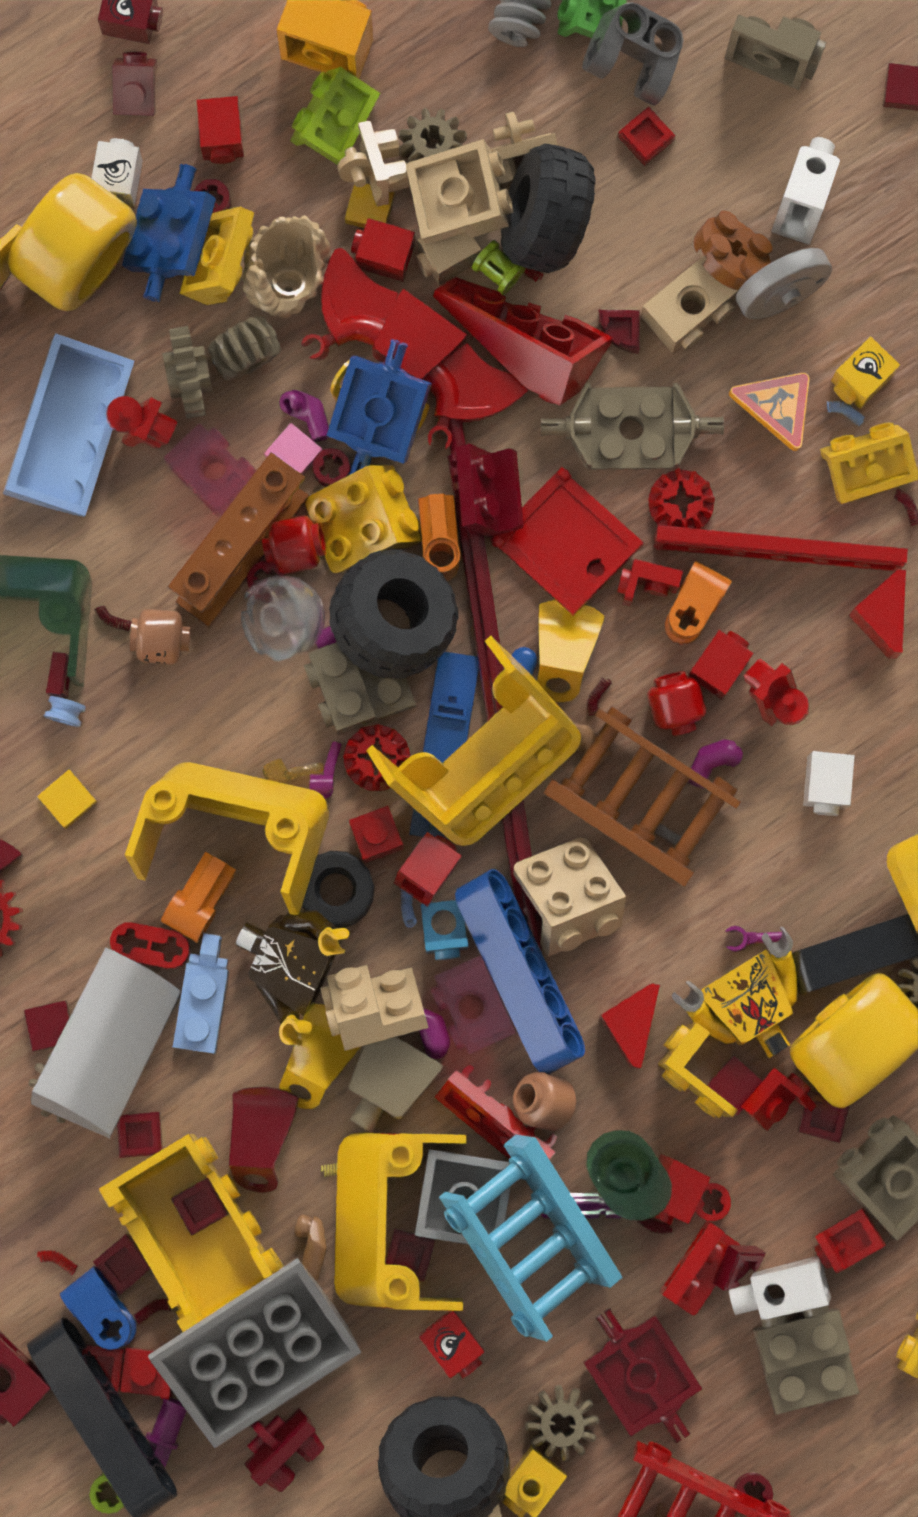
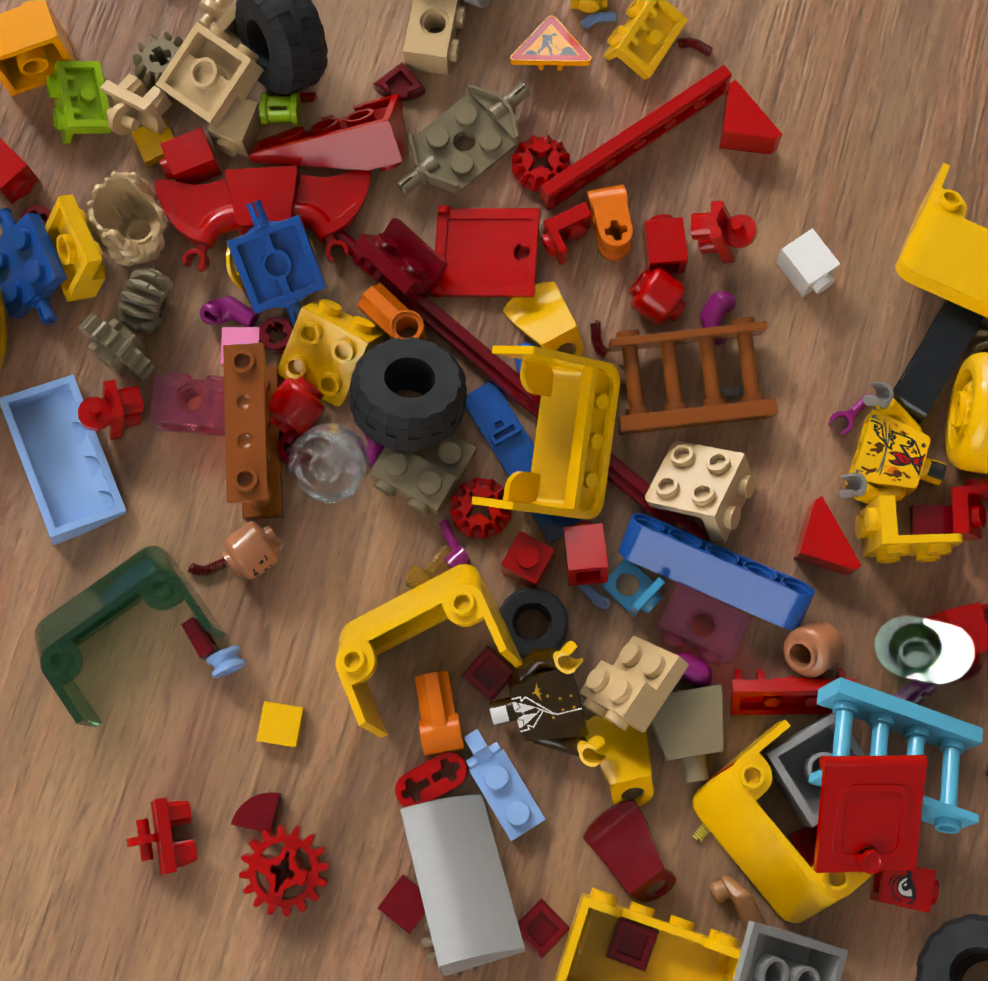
camera: 30 degrees left, 5 degrees down
(265, 899) = (488, 673): none -> dark red tile
(468, 1253) = (869, 805): none -> red container

